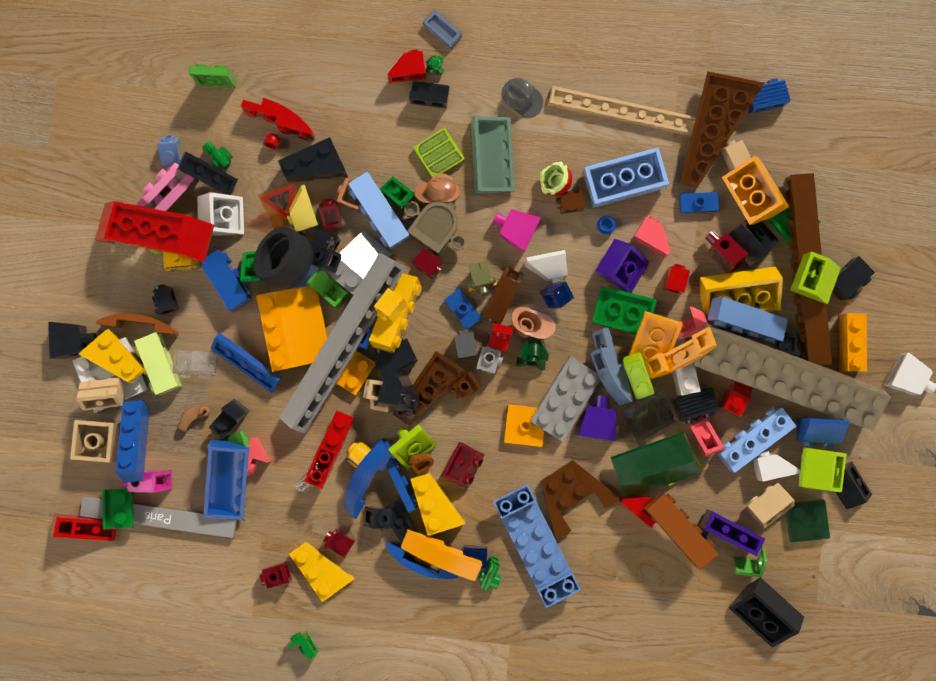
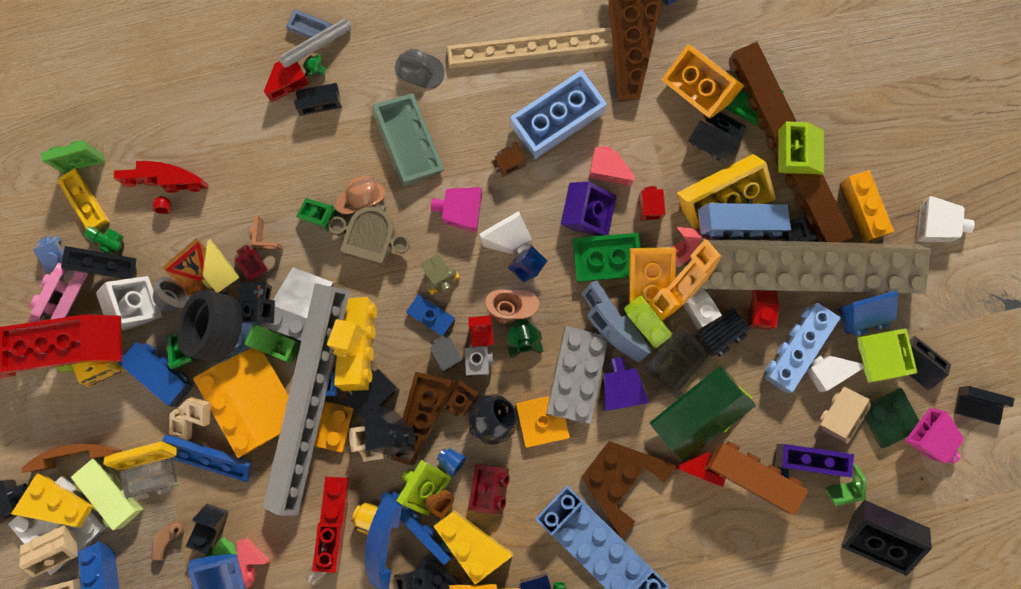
camera: 10 degrees left, 5 degrees down
(164, 299) = (93, 419): black brick -> none
(194, 343) = (140, 456): none -> yellow tile
(208, 114) = (82, 200): none -> yellow tile
(244, 321) = (190, 411): none -> tan tile
(256, 220) = (169, 295): none -> dark grey piece
(313, 163) = (213, 212): black wedge -> none
(379, 211) = (303, 240): light blue brick -> none
(427, 263) = (374, 278): dark red brick -> none
(439, 153) = (348, 156): tile -> none
(440, 432) = (451, 461): none -> blue hat
(443, 46) = (315, 42): none -> light grey axle
(480, 412) = (486, 421): none -> black piece
(503, 295) = (469, 284): reddish brown slope -> none
(556, 179) = (484, 141): yellowish green hair -> none
(606, 225) = (555, 172): blue plate -> none
(698, 202) = (646, 115): blue plate -> none
(706, 437) = (746, 364): coral slope -> none
(726, 251) = (694, 156): dark red torso -> none
(735, 154) = (666, 51): tan brick -> none
(837, 548) = (936, 437): none -> dark pink torso
(851, 278) = (839, 137): black brick -> none
(884, 535) = (981, 404): none -> black panel

